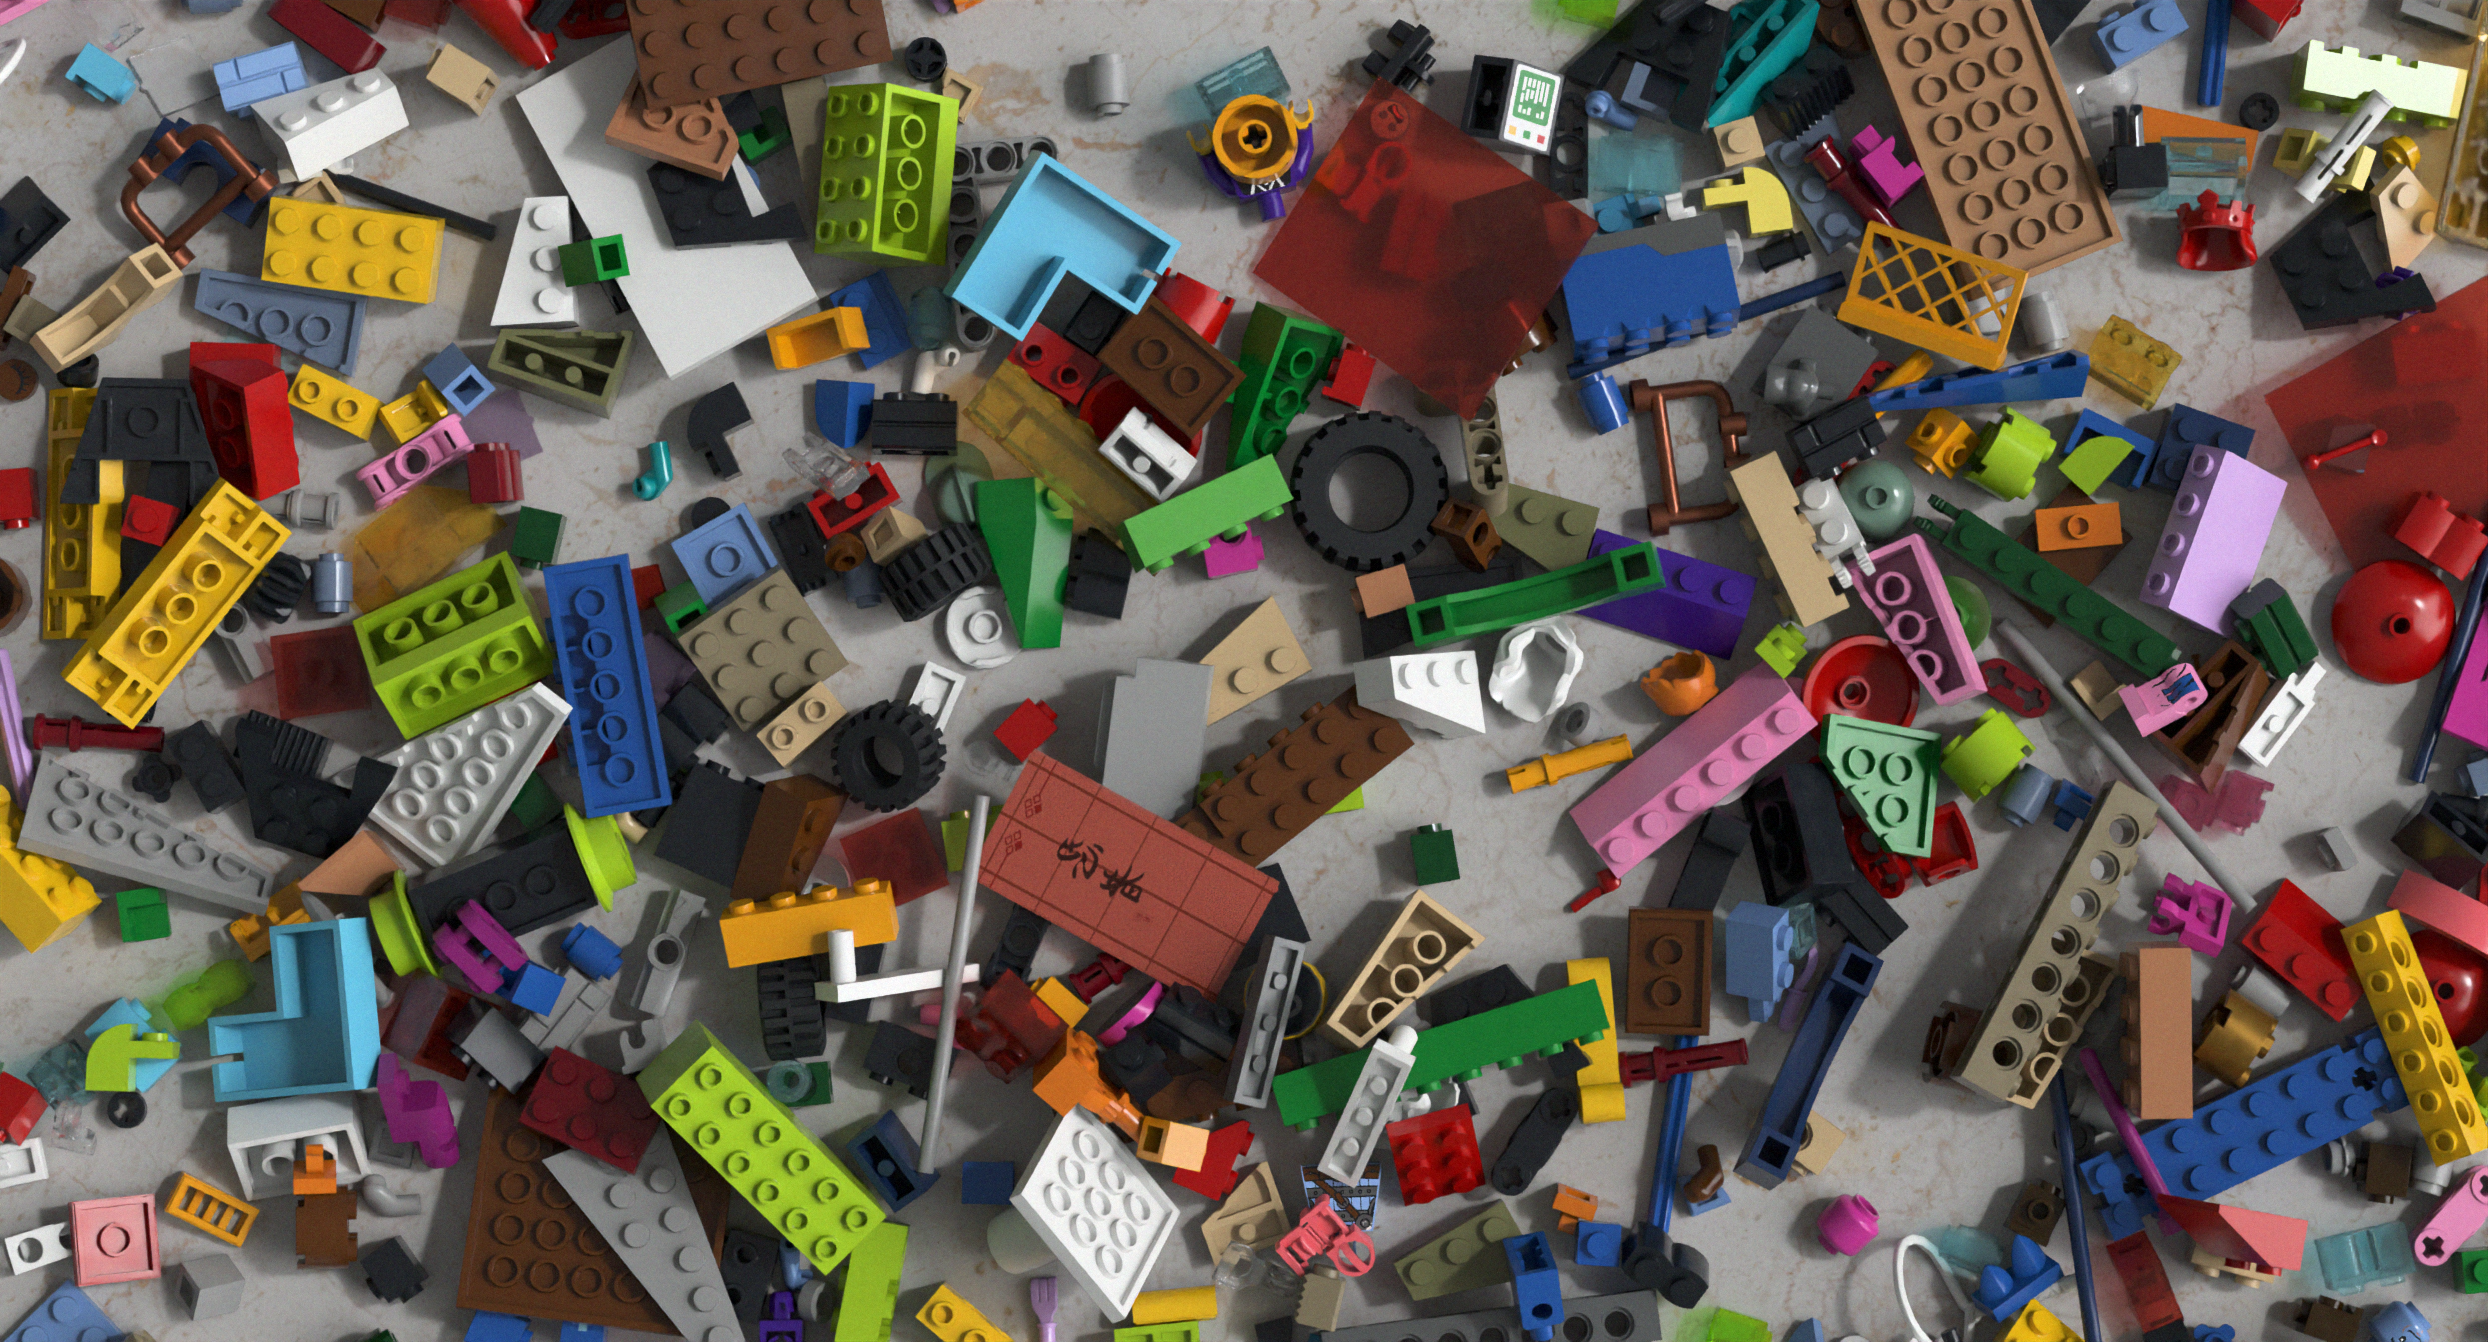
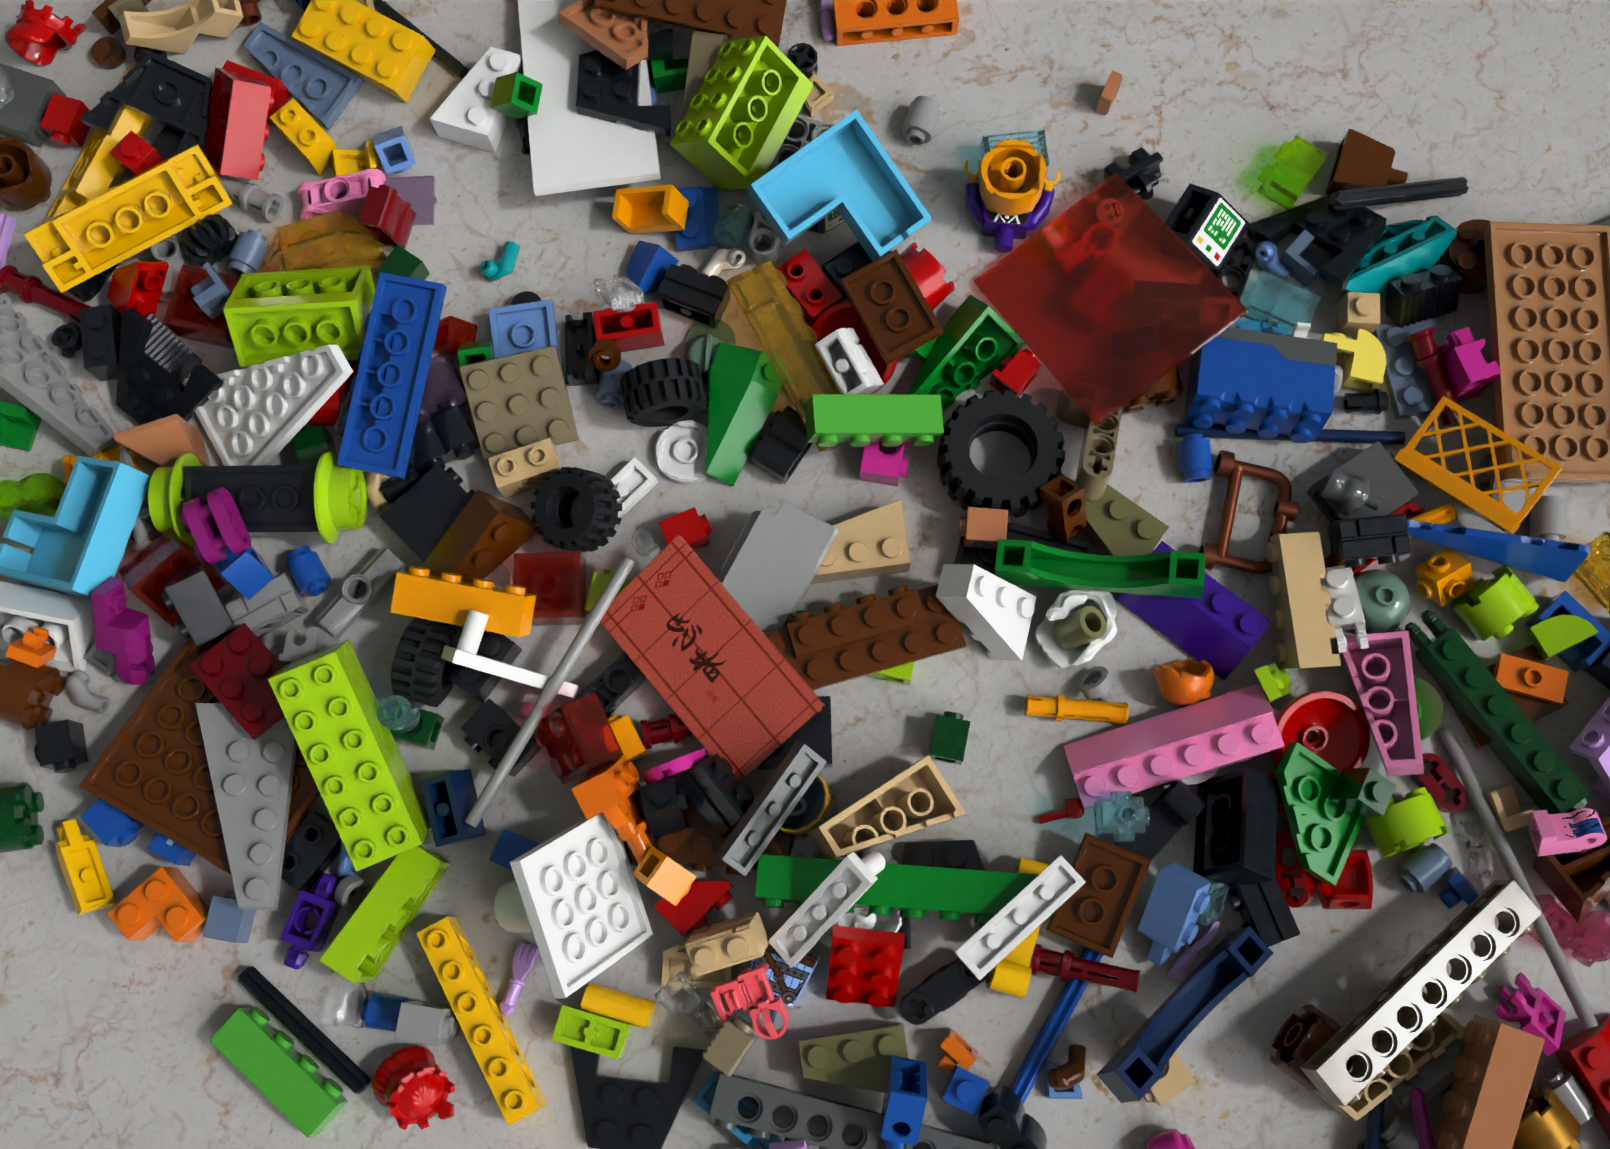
camera: 30 degrees right, 10 degrees down
(222, 686) = (138, 286): none -> red slope
(330, 661) = (211, 292): none -> sand blue panel
(564, 367) = (470, 168): olive wedge -> none
(712, 420) = (557, 241): black brick -> none
(891, 534) = (641, 352): tan panel -> none
(1273, 1189) = (727, 943): none -> tan brick
(1539, 671) = (1080, 628): none -> olive brick
(1588, 1035) = (1020, 917): none -> white piece
(1647, 878) = (1109, 817): none -> clear light blue brick
(1923, 741) = (1363, 792): none -> dark green brick

